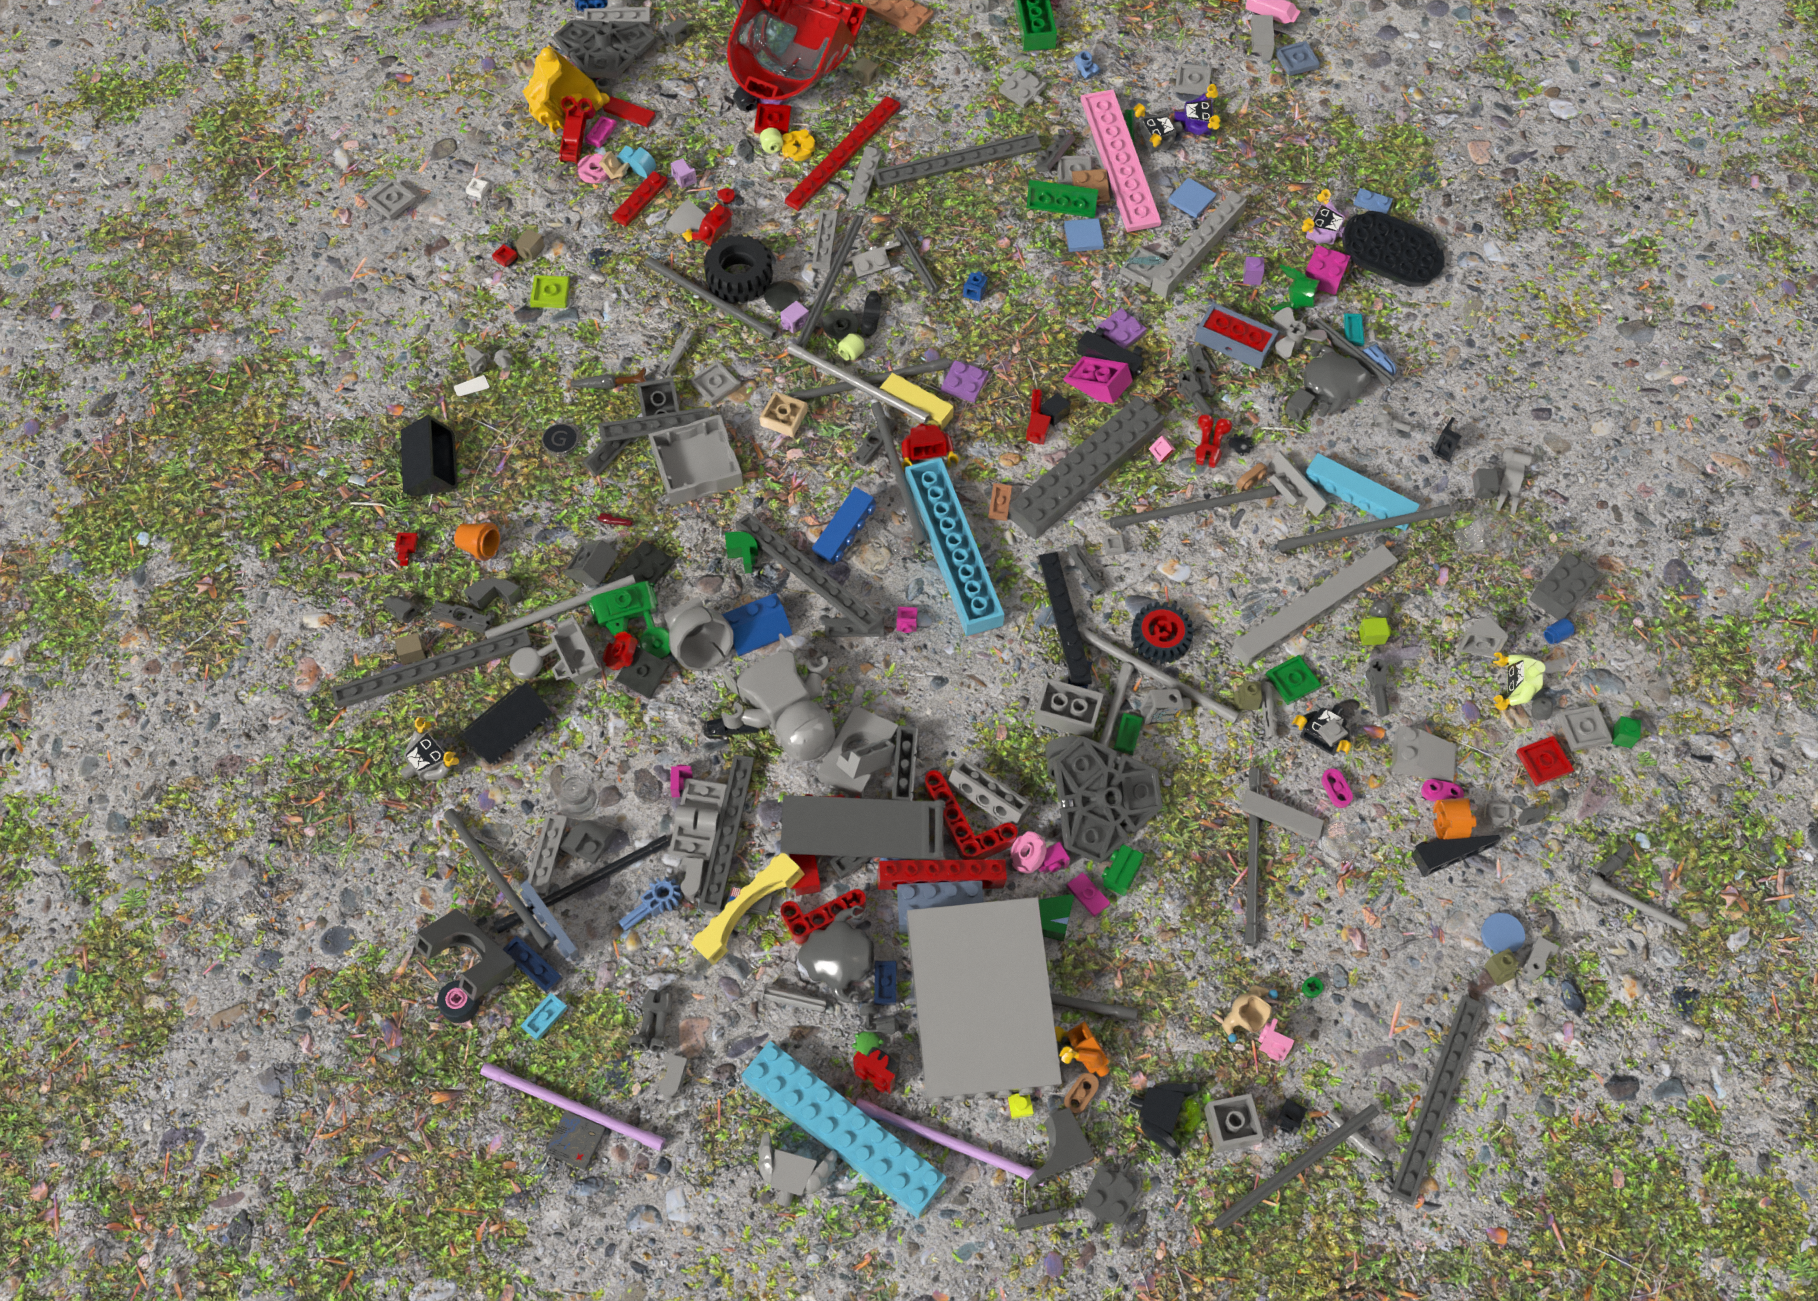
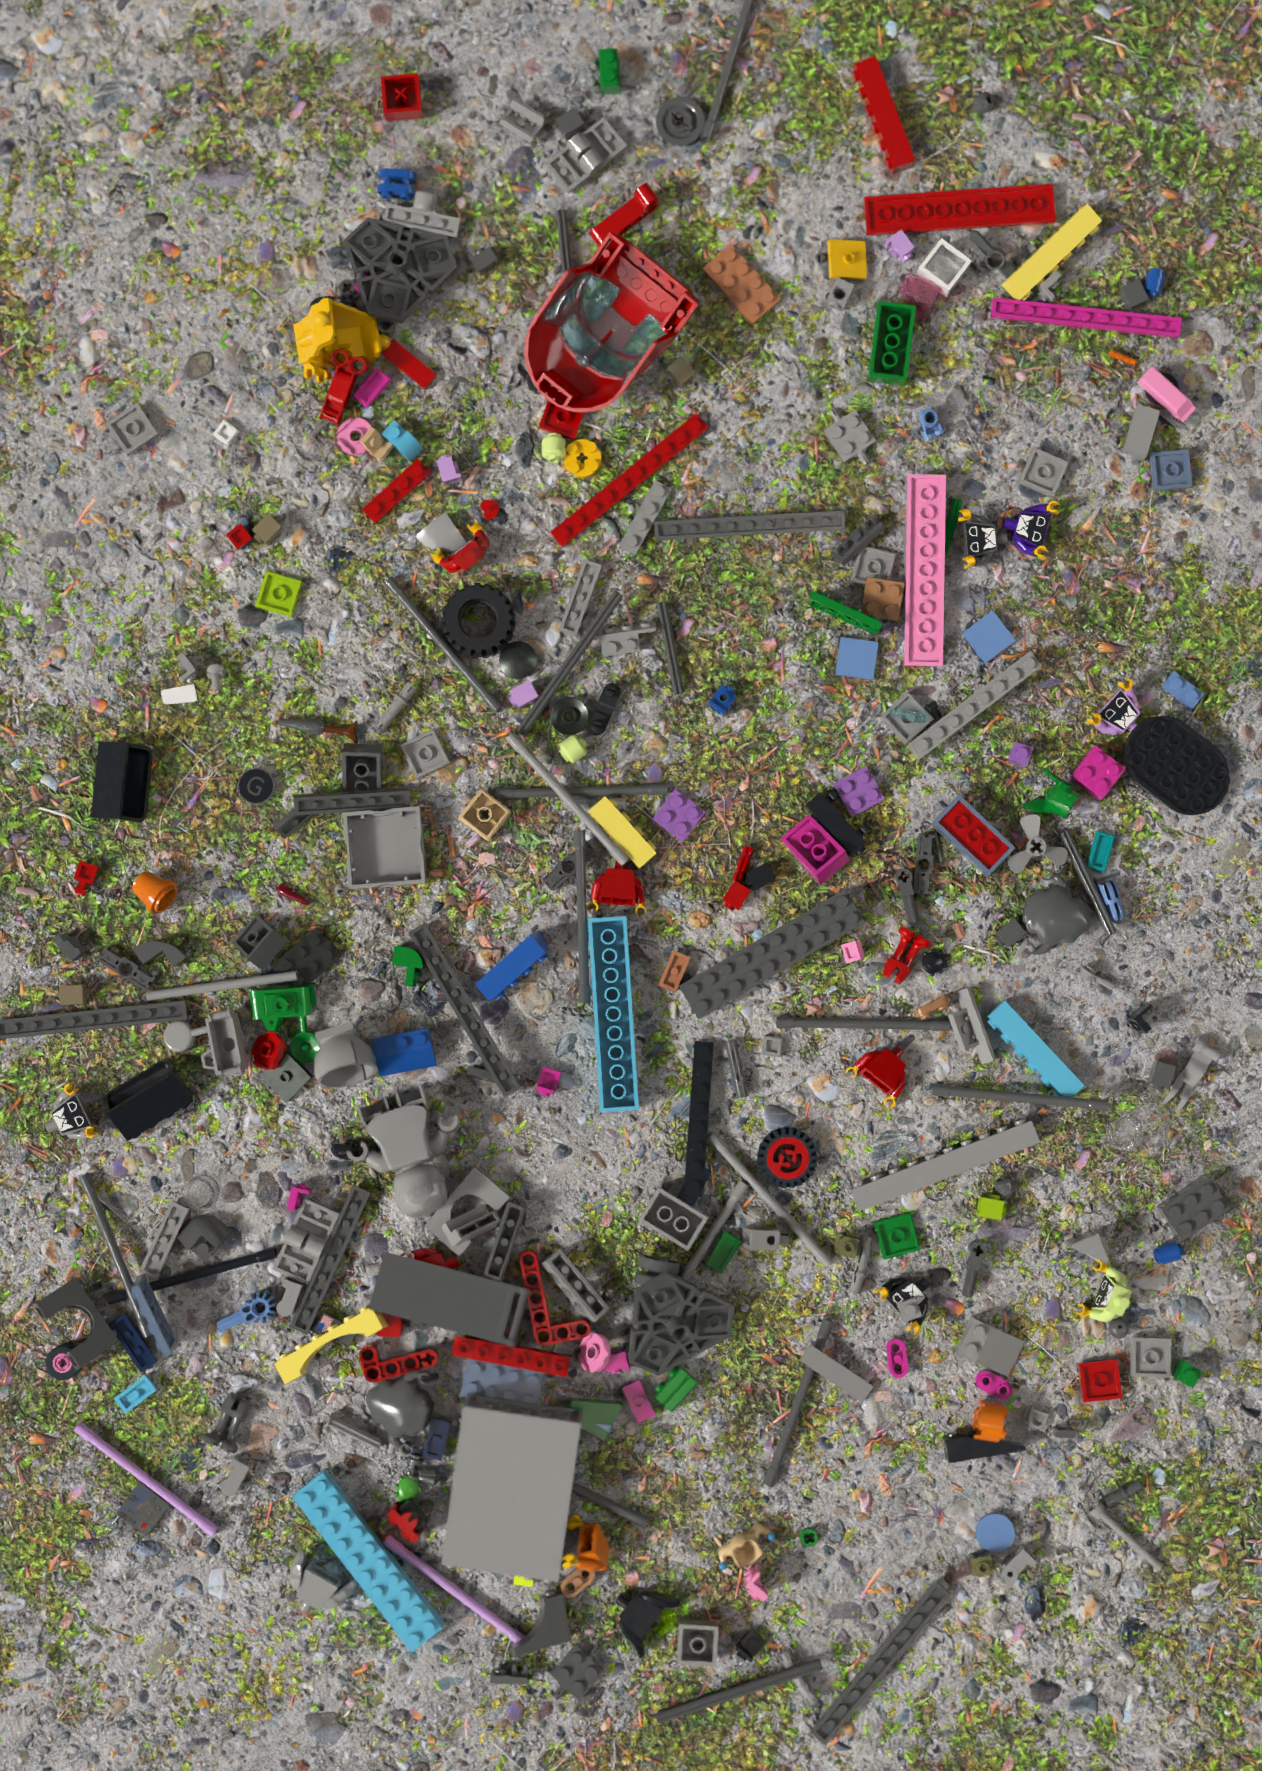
camera: 20 degrees right, 25 degrees up
(1228, 536) = (884, 1071): none -> red torso

